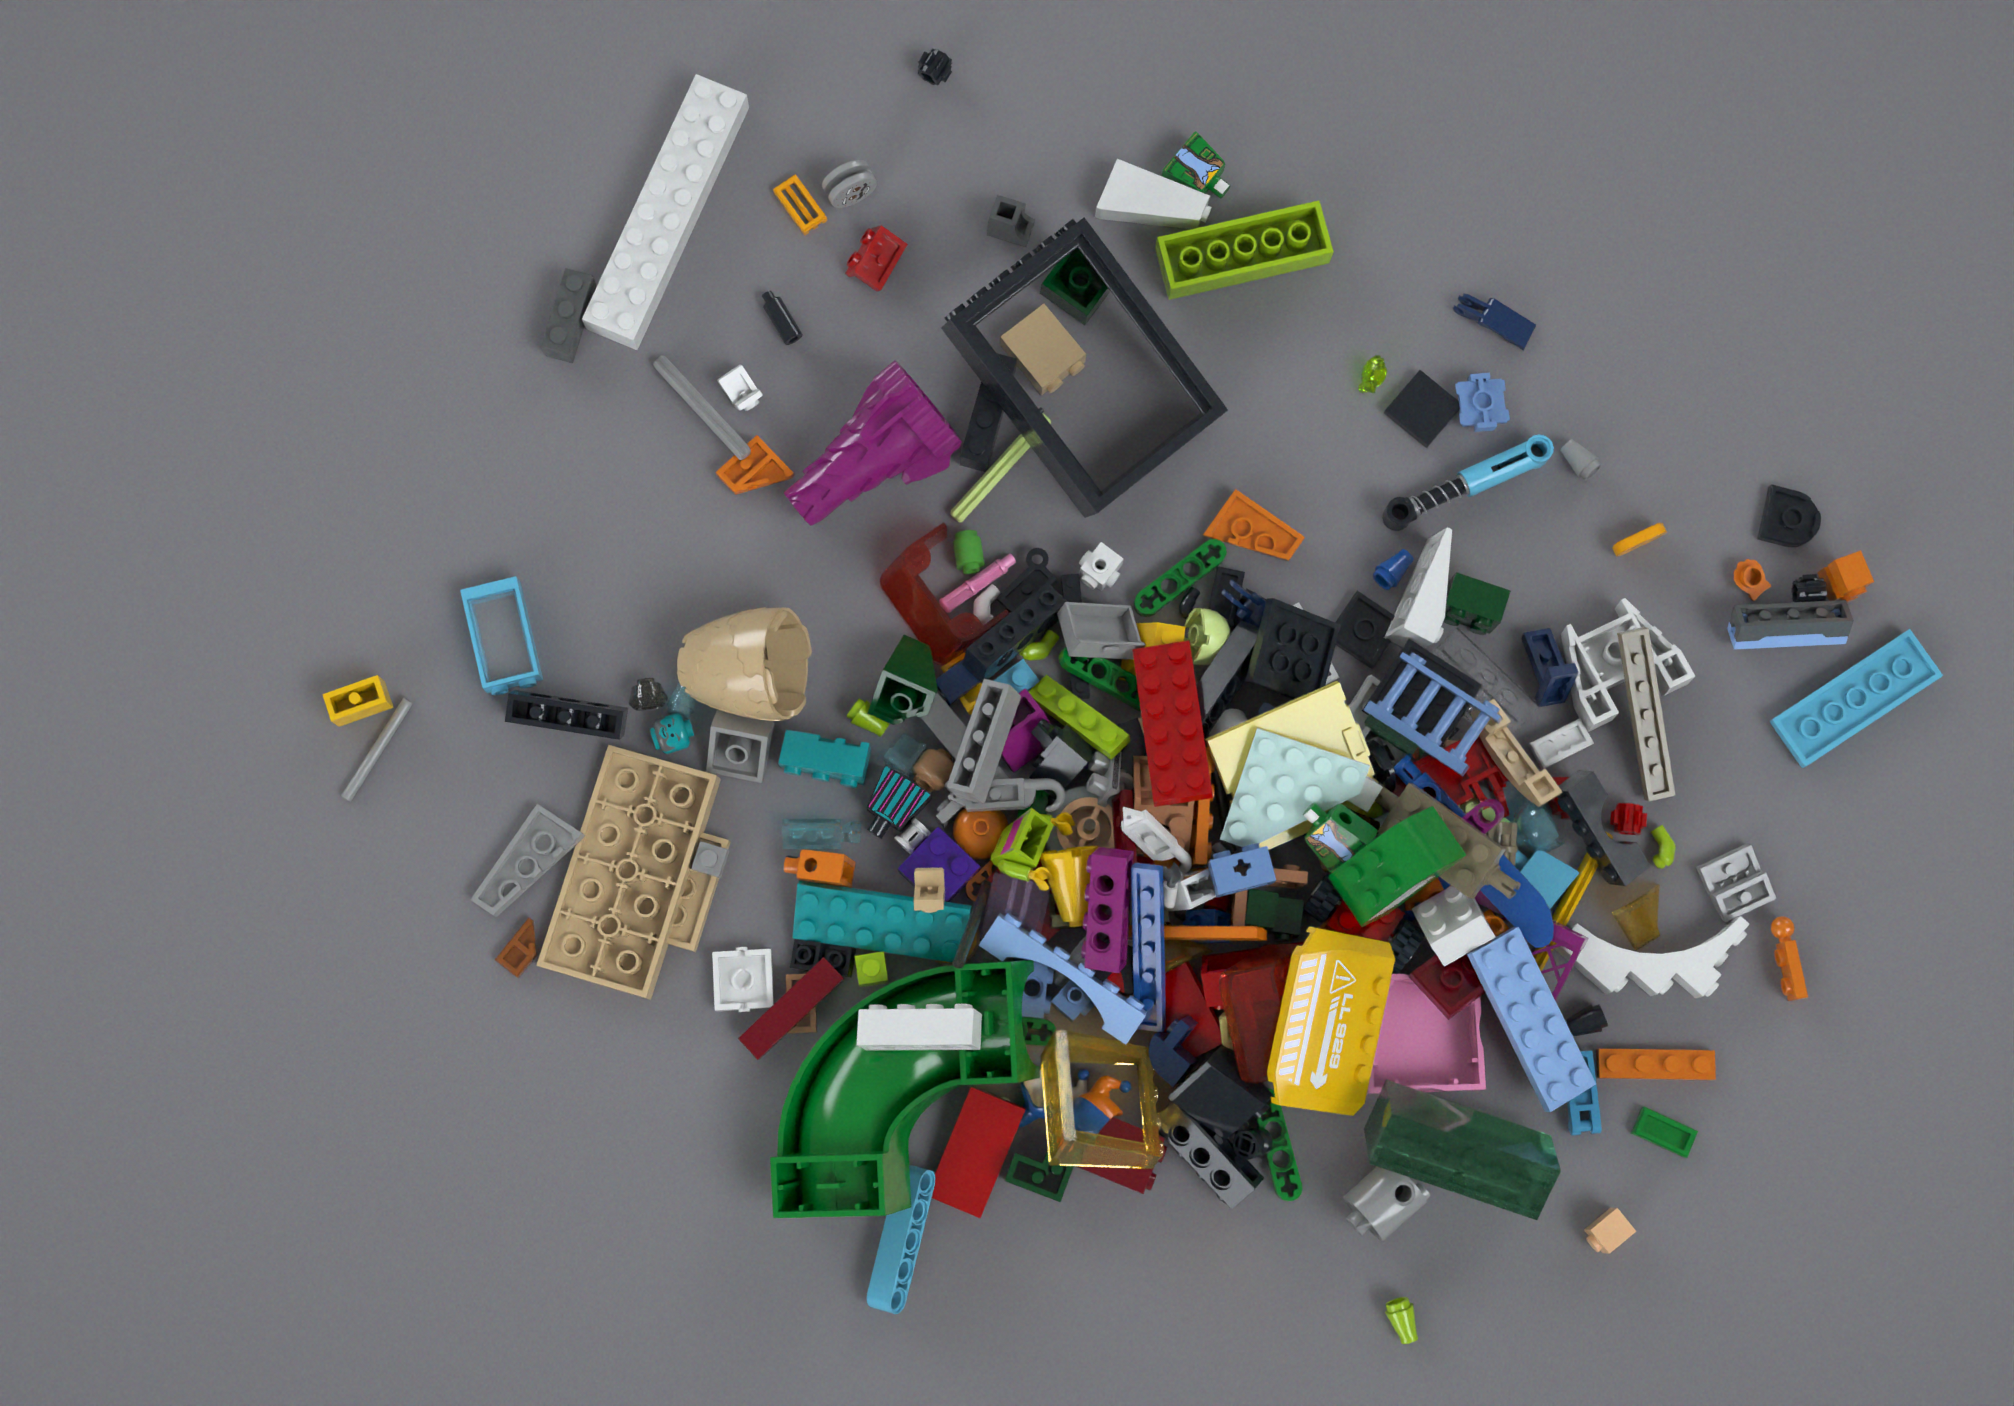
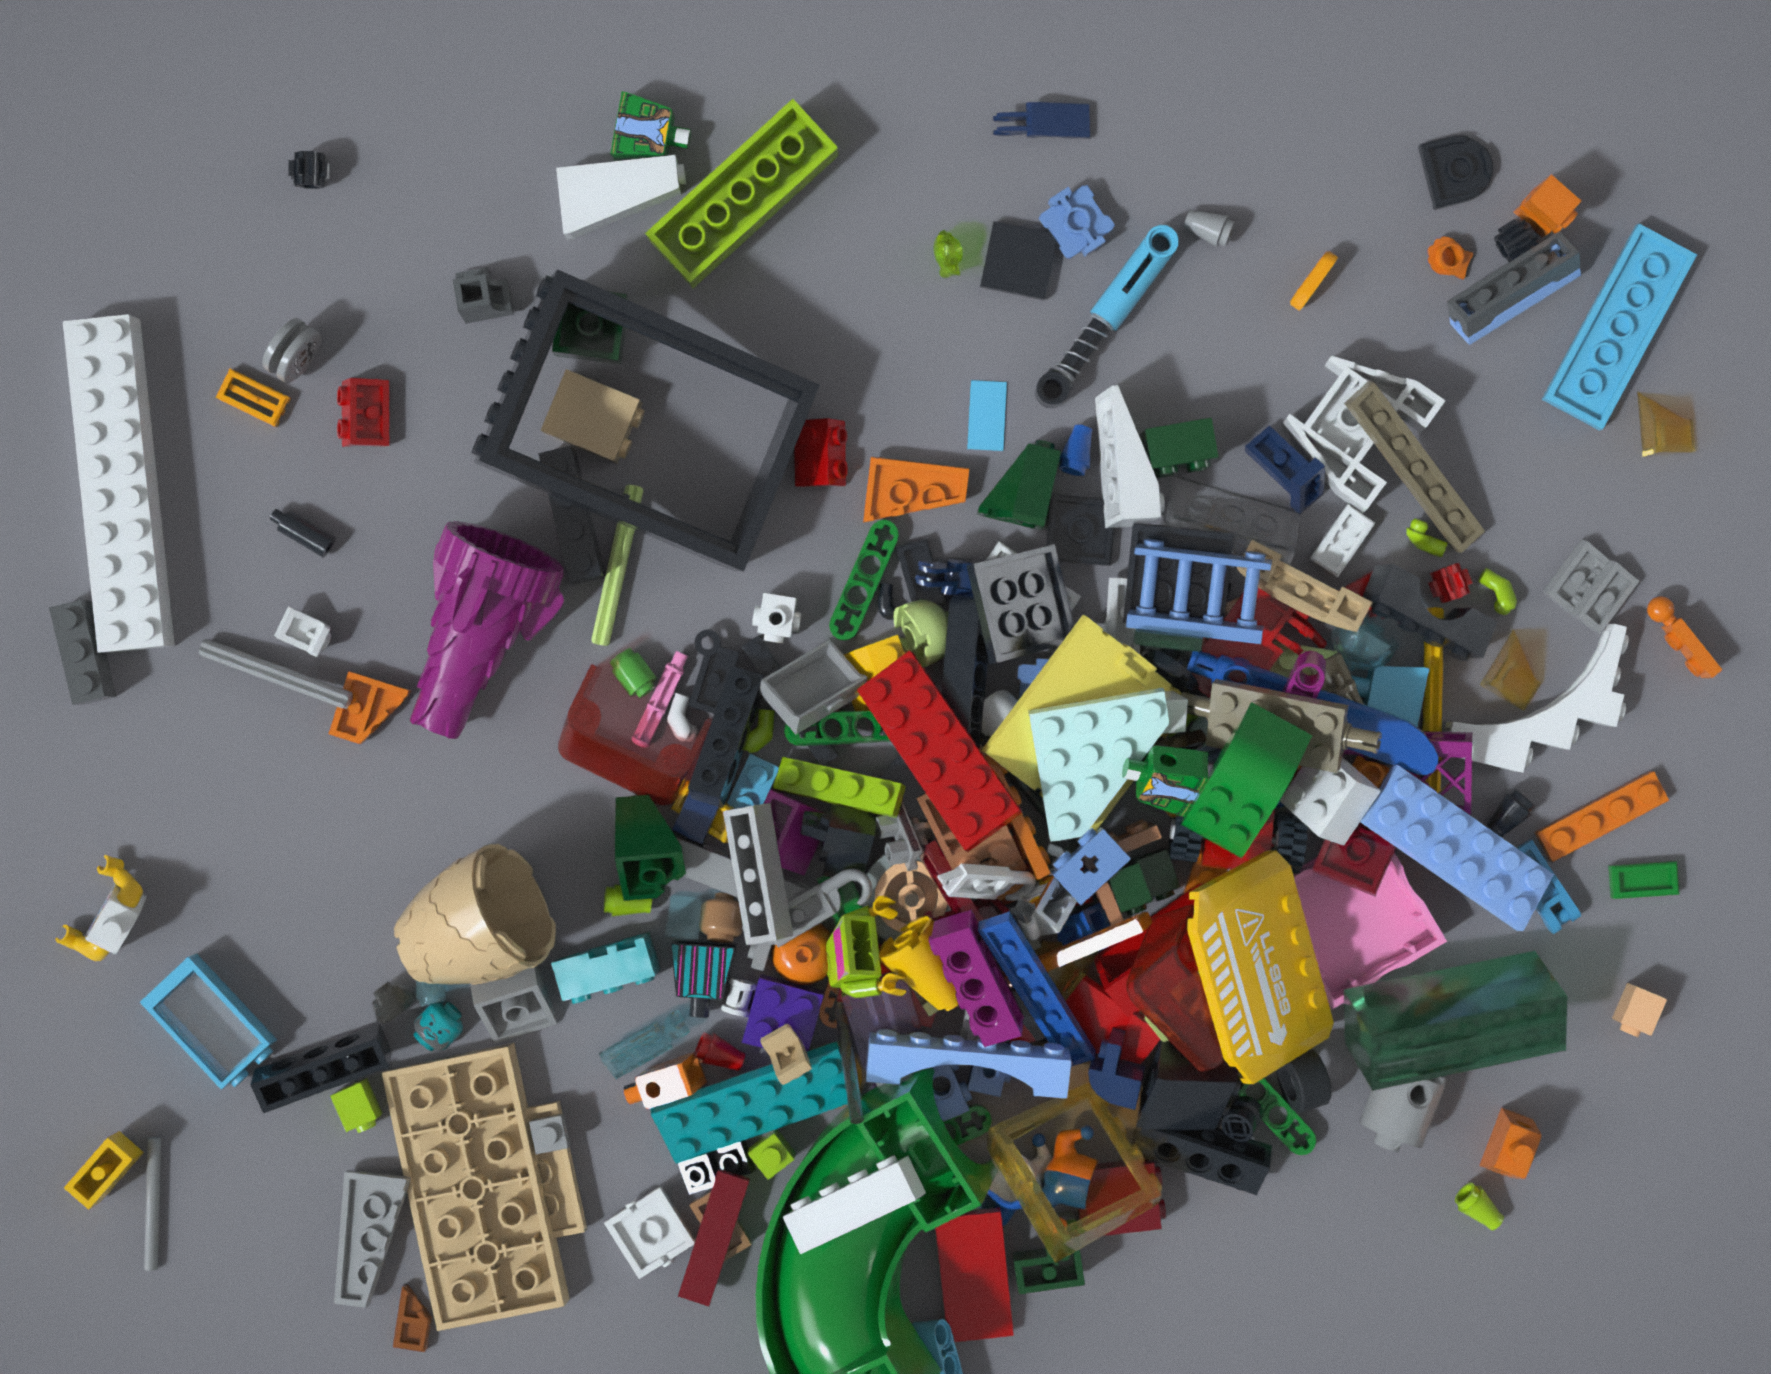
camera: 25 degrees left, 10 degrees up
(475, 519) = (113, 919): none -> torso
(575, 759) = (357, 1106): none -> lime brick
(873, 870) = (717, 1052): none -> red cone
(1198, 467) = (821, 454): none -> red bracket
(1316, 1140) = (1305, 1082): none -> black tyre
(1338, 508) = (987, 415): none -> medium azure sticker
(1338, 574) = (1025, 488): none -> dark green slope
(1452, 1283) = (1511, 1145): none -> orange torso
(1623, 778) = (1422, 541): none -> lime arm
(1851, 795) = (1663, 430): none -> clear yellow slope

